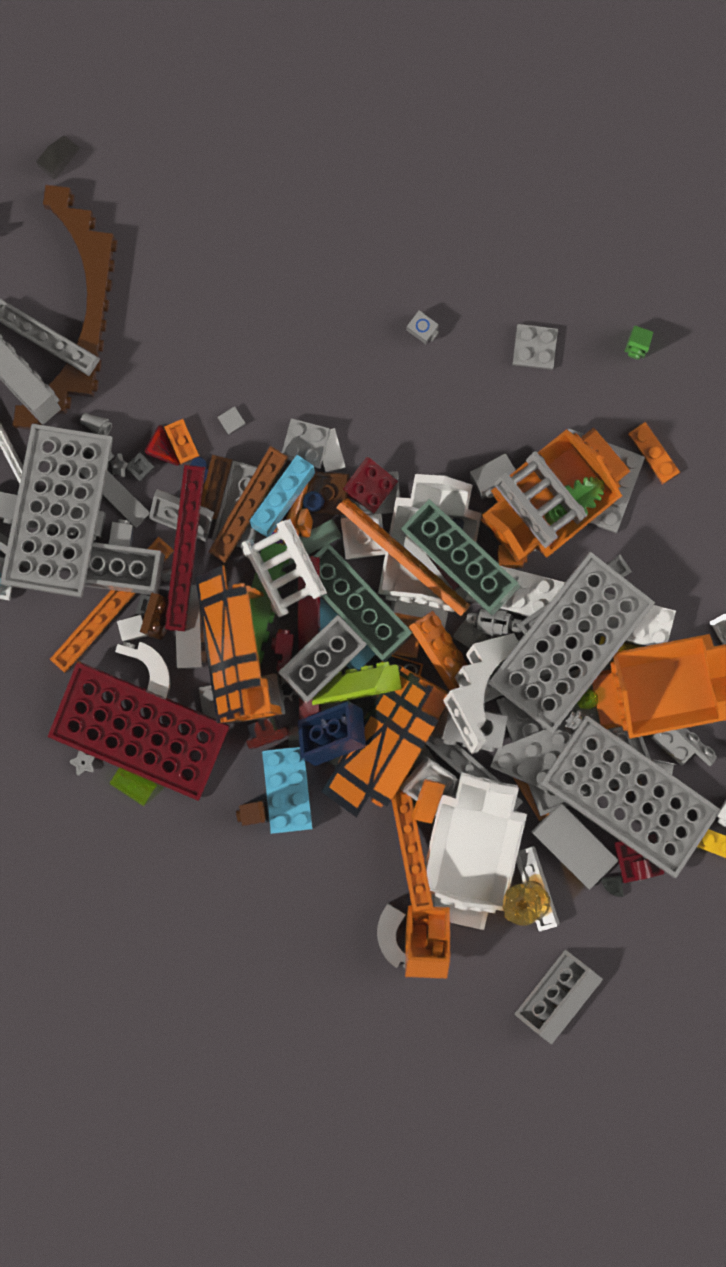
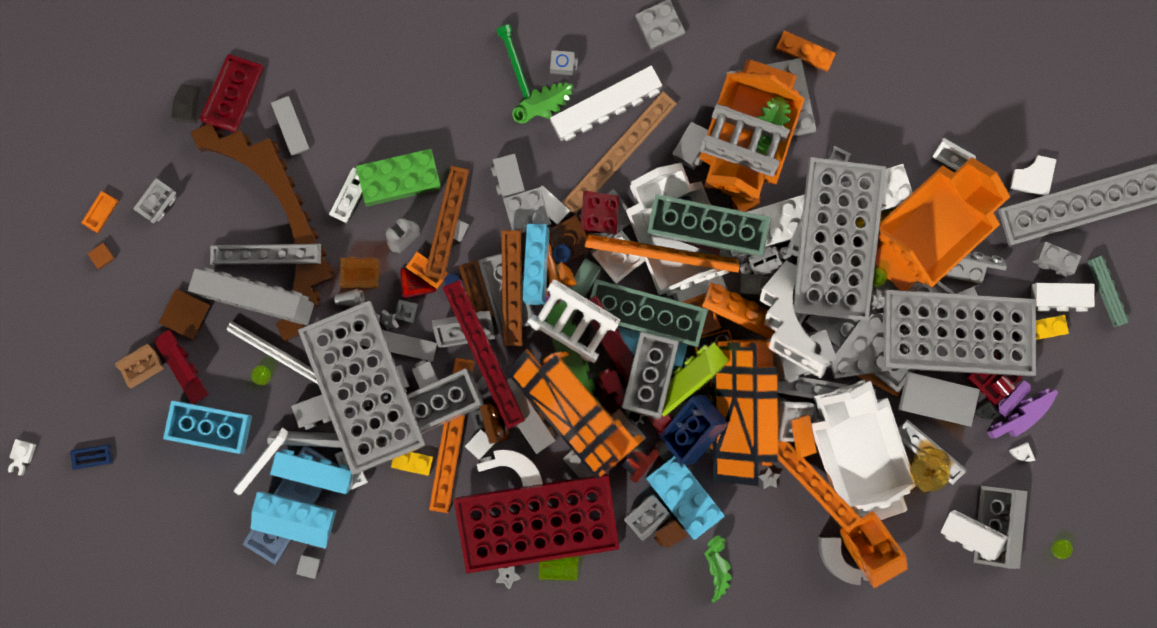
camera: 35 degrees left, 0 degrees up
(61, 608) = (413, 463): none -> yellow plate
(104, 172) = (232, 93): none -> dark red tile
(119, 406) = (359, 272): none -> clear orange bracket
(139, 234) = (290, 126): none -> light grey tile
(153, 330) = (347, 198): none -> white plate
(178, 395) = (402, 235): none -> light grey piece
(207, 341) = (398, 177): none -> bright green brick
(226, 409) = (447, 222): none -> dark orange tile
(242, 787) = (647, 517): none -> light grey bracket
(278, 872) = (718, 567): none -> bright green plant
(308, 400) = (508, 176): none -> light grey brick
(375, 822) = (769, 478): none -> light grey piece
(381, 353) = (542, 103): none -> bright green plant
(387, 268) = (505, 34): none -> green piece
(426, 441) = (620, 151): none -> medium nougat tile
(439, 389) = (606, 103): none -> white brick
(527, 987) = (974, 535): none -> white brick
(602, 1052) = (1062, 549): none -> clear neon green tile
(622, 943) = (1022, 452): none -> white tile
(640, 890) = (1008, 404): none -> medium lavender plate
(652, 909) = (1030, 413): none -> medium lavender slope

